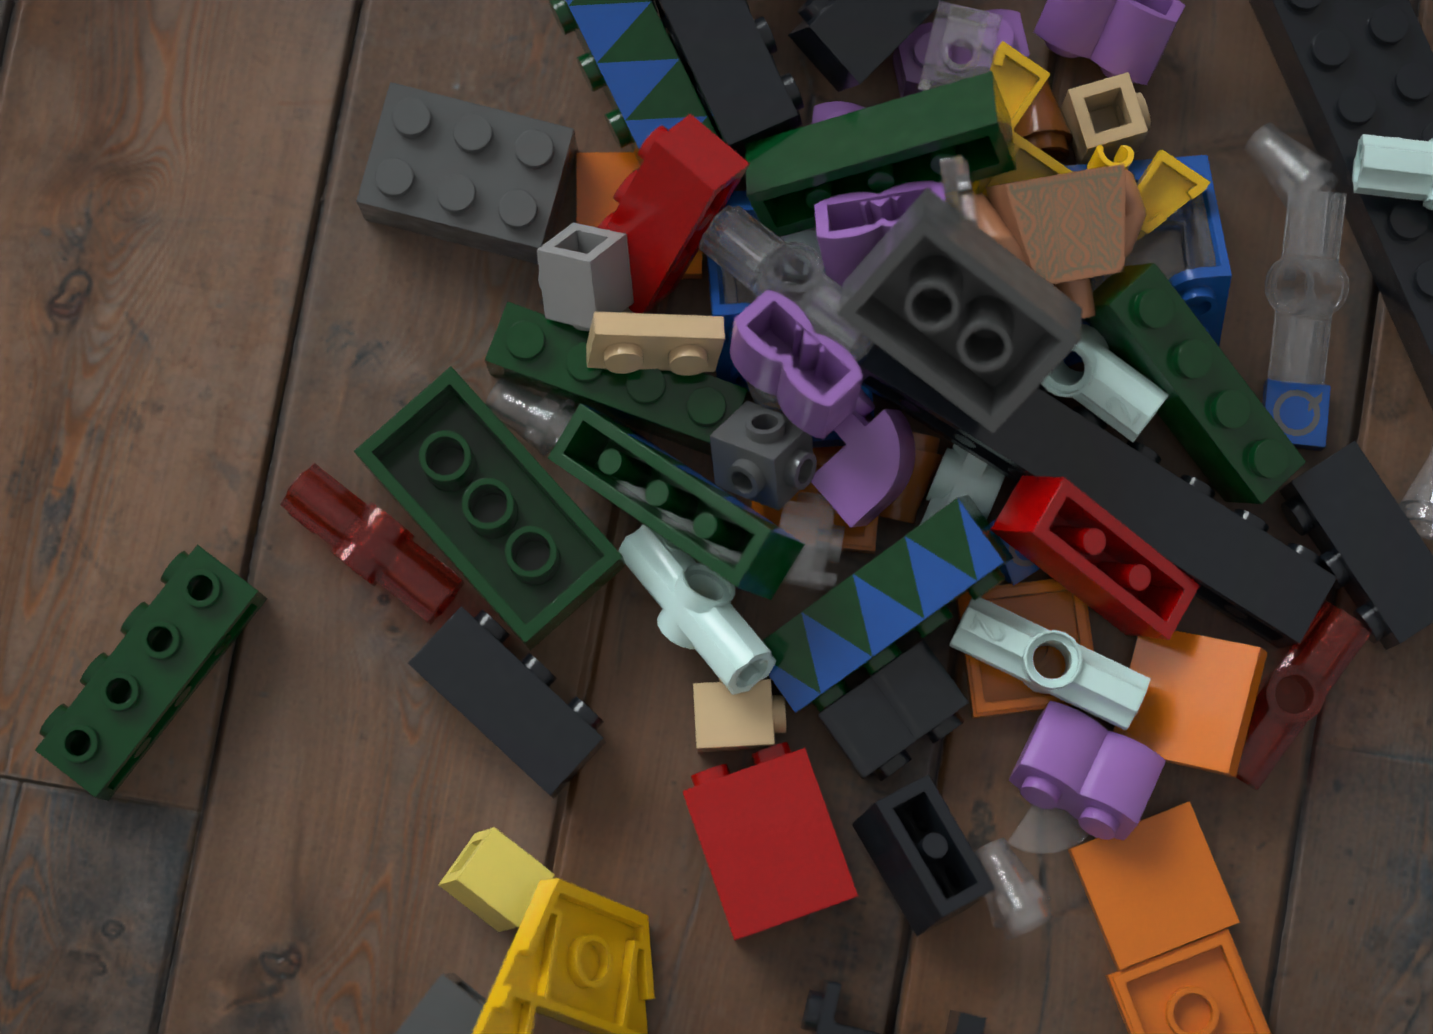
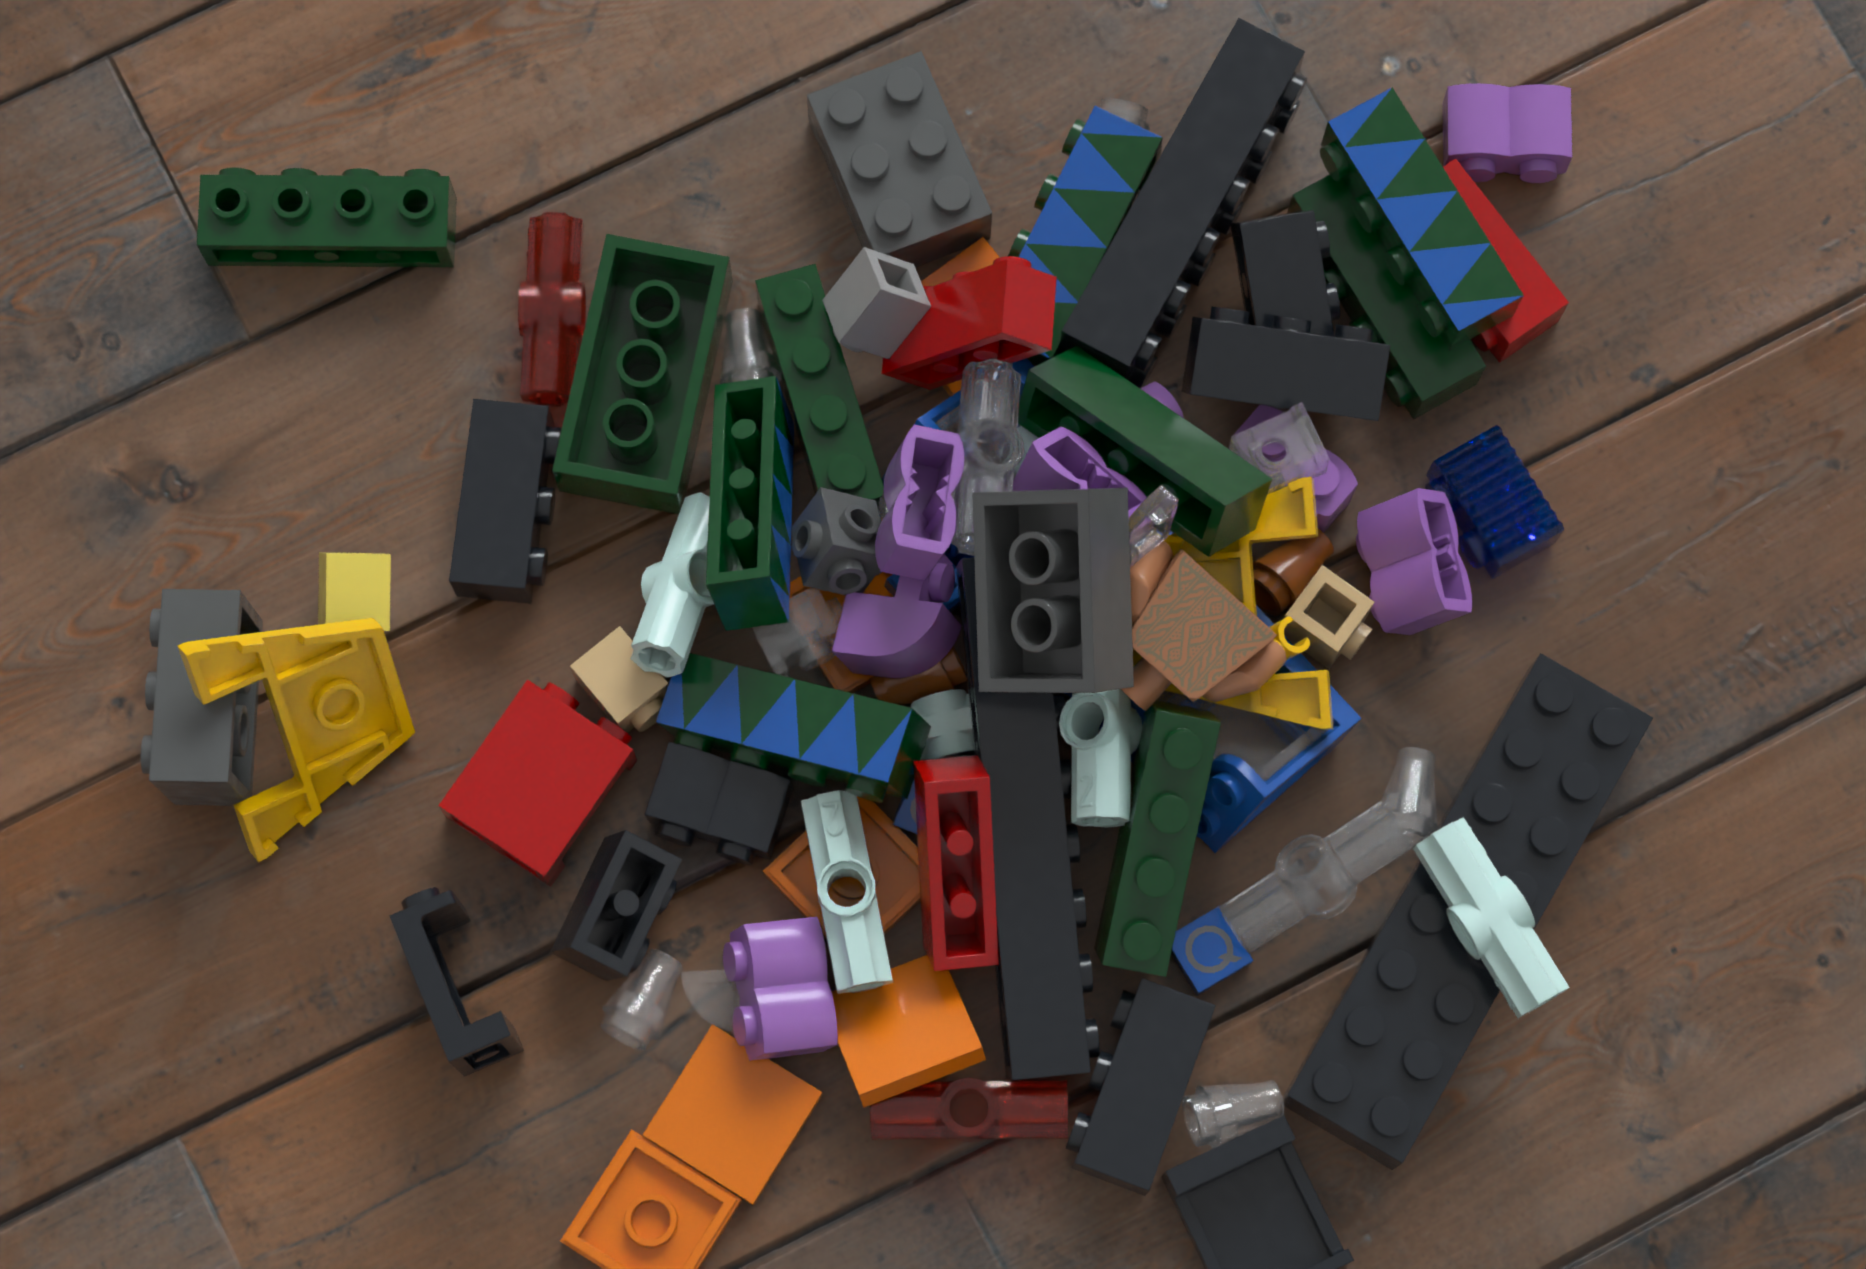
camera: 50 degrees right, 5 degrees down
(655, 341) = (860, 387): tan plate -> none

